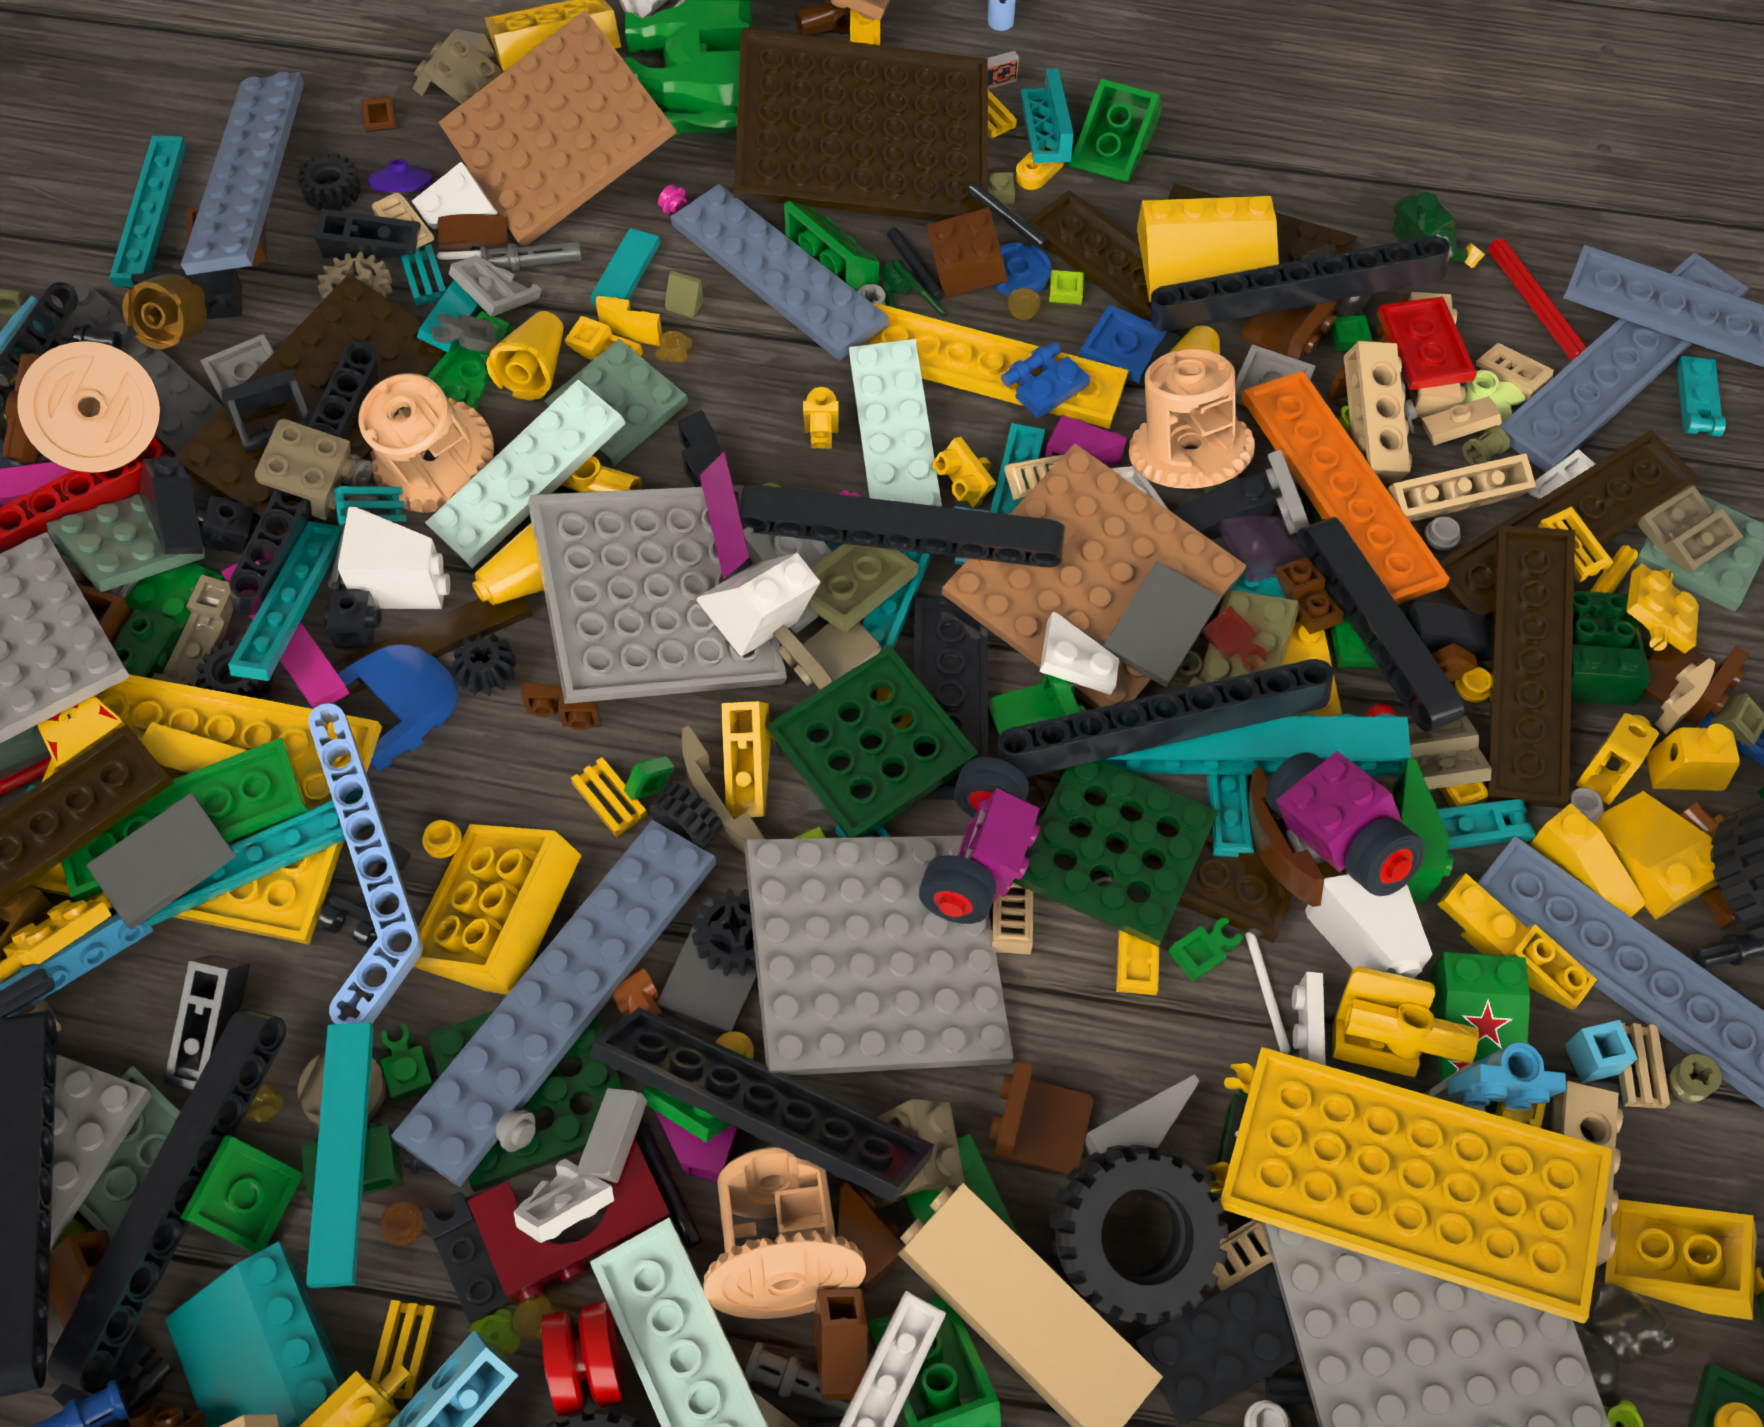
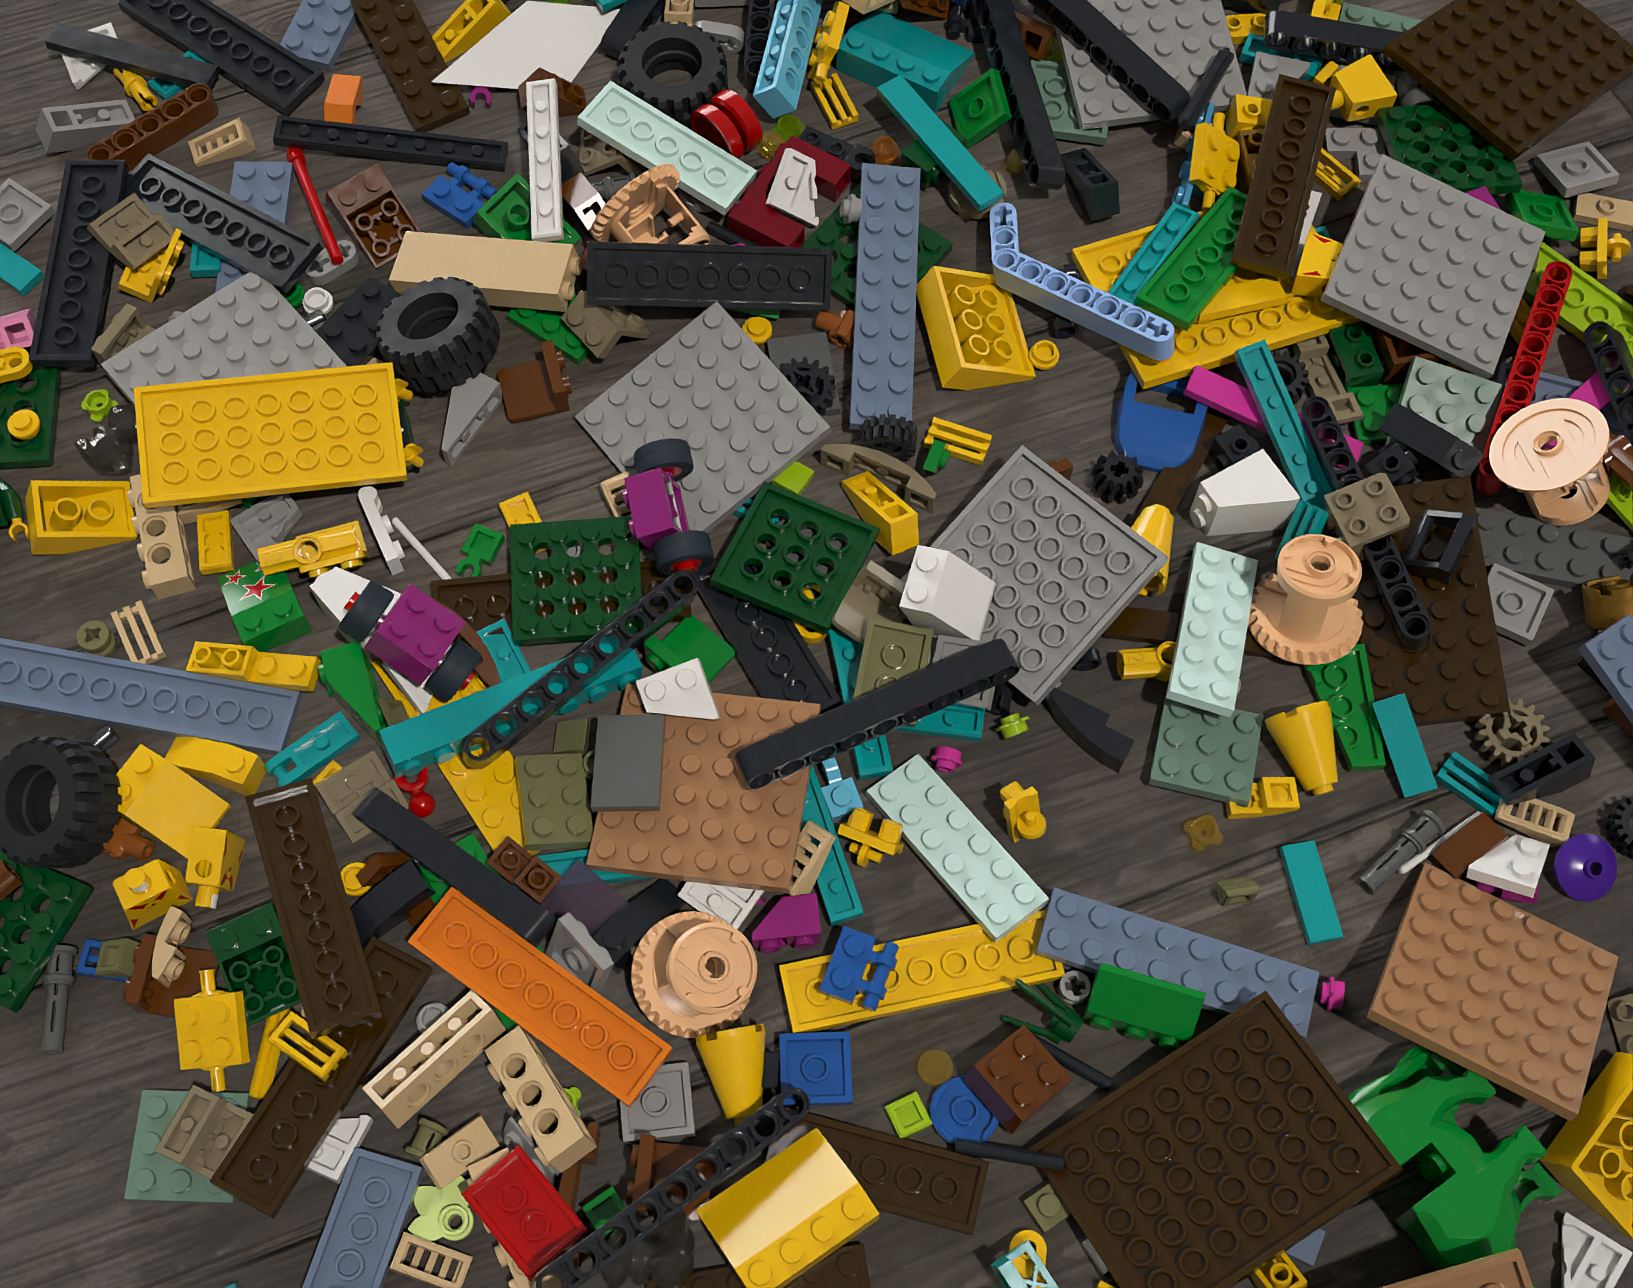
camera: 150 degrees right, 5 degrees up
(161, 861) = (1190, 223): dark grey tile -> none
(407, 1068) = (953, 223): green plate -> none
(471, 331) = (1364, 722): dark grey plate -> none
(492, 286) = (1397, 791): light grey wing -> none
(612, 1134) = (788, 224): light grey slope -> none
(633, 325) = (1267, 829): yellow slope -> none
(724, 516) = (1021, 647): magenta sticker -> none
(1232, 635) = (565, 782): clear red plate -> none
(1508, 1076) = (230, 534): dark azure plate -> none
(1587, 802) = (233, 814): light grey plate -> none
(1600, 1051) = (169, 613): medium azure brick -> none

